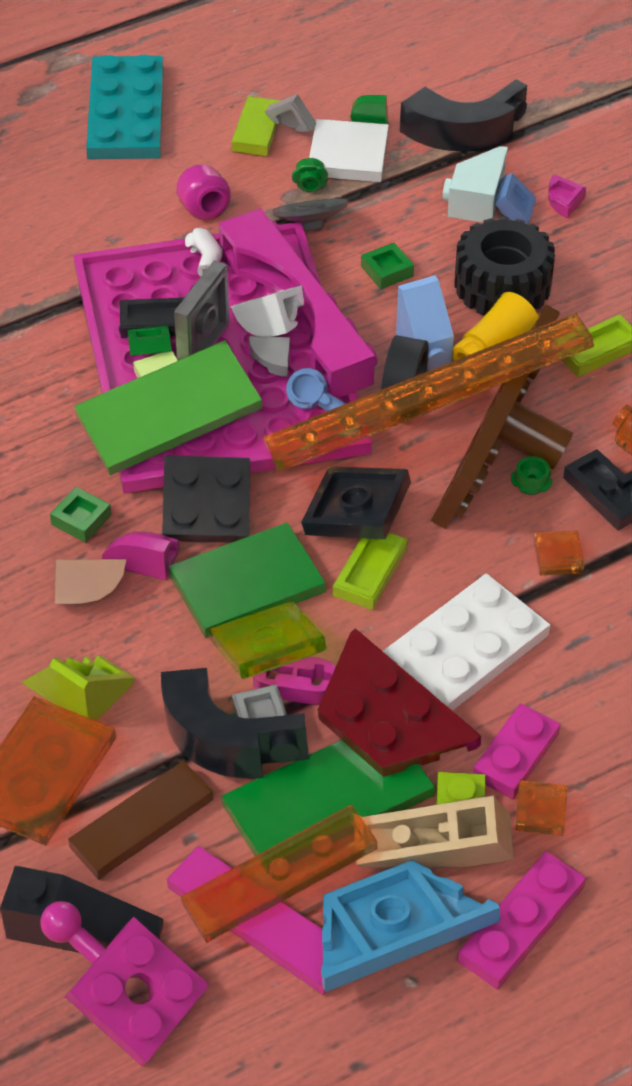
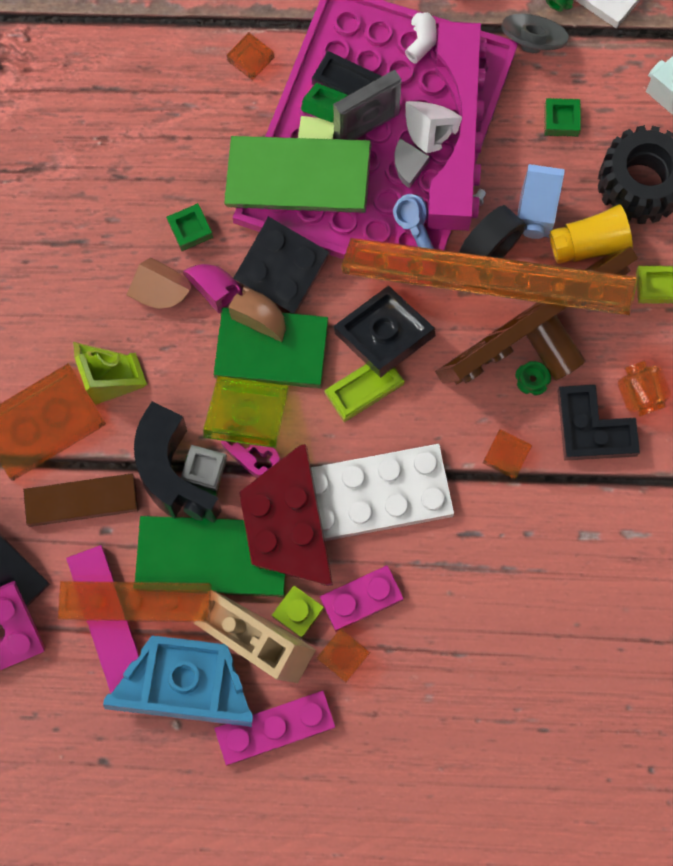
camera: 35 degrees right, 25 degrees up
(35, 349) = (250, 56): none -> clear orange tile
(215, 549) = (258, 313): none -> nougat brick

